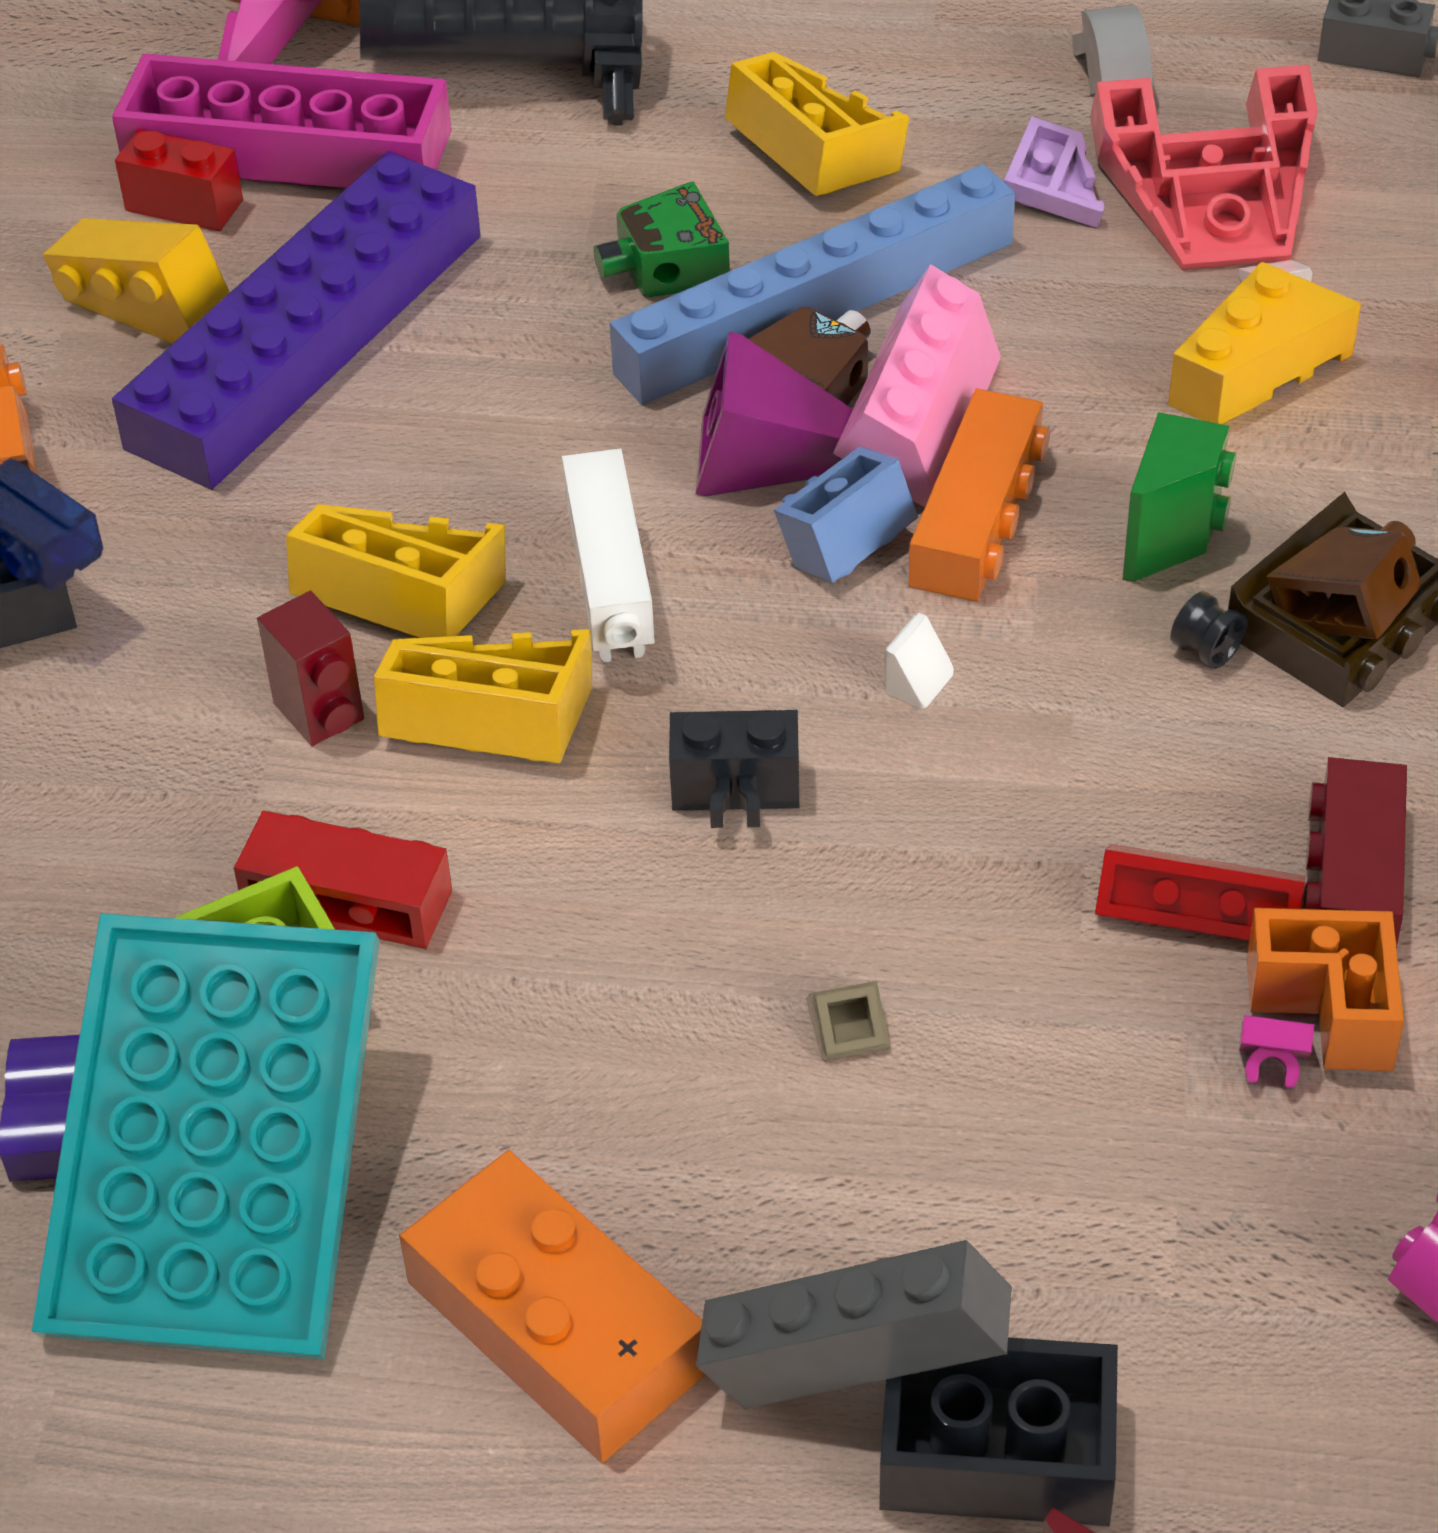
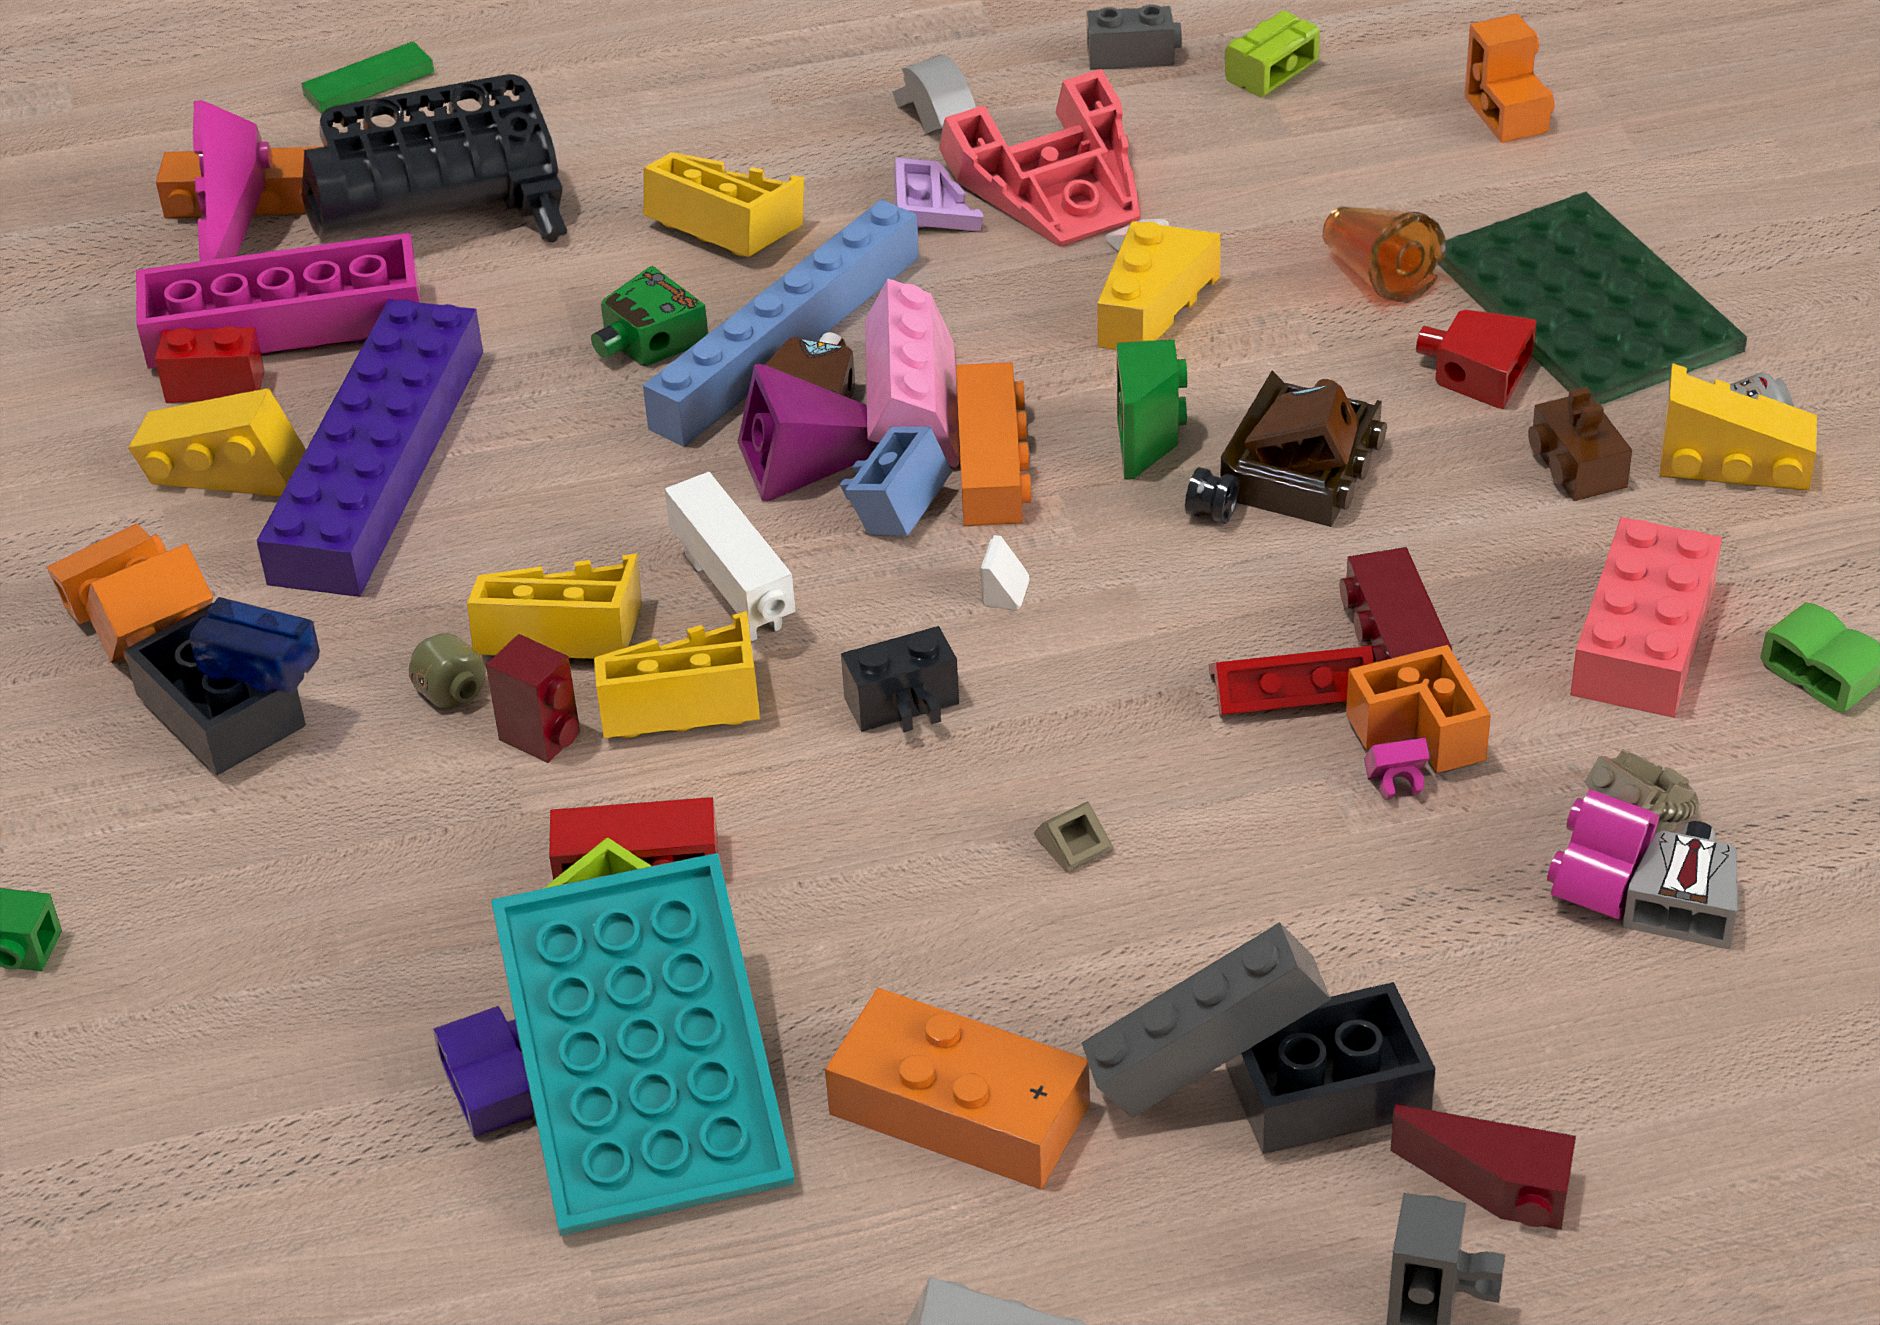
camera: 20 degrees left, 5 degrees down
(238, 598) = (444, 668): none -> olive head

